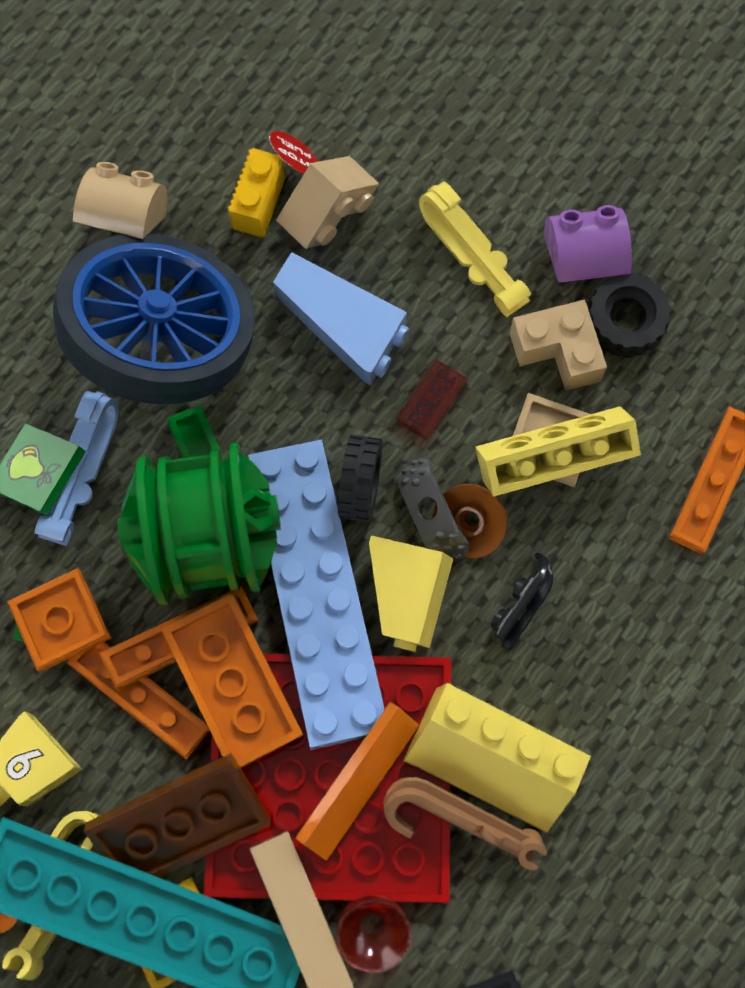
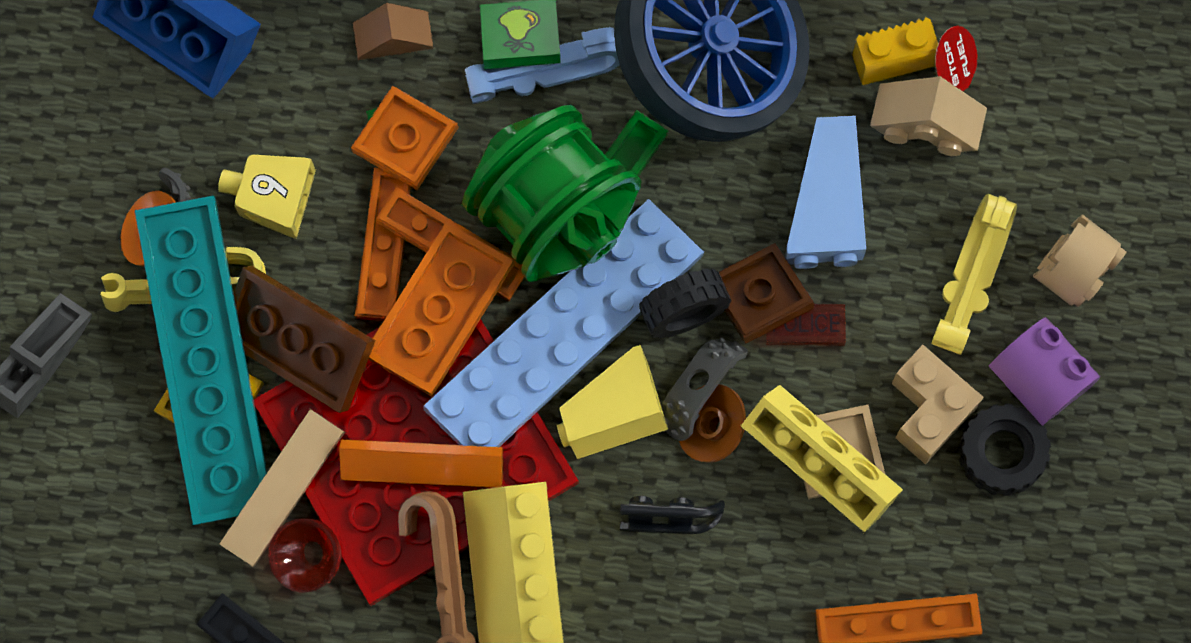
camera: 60 degrees right, 0 degrees up
(387, 412) = (763, 293): none -> reddish brown tile
(518, 166) = (1078, 261): none -> tan brick

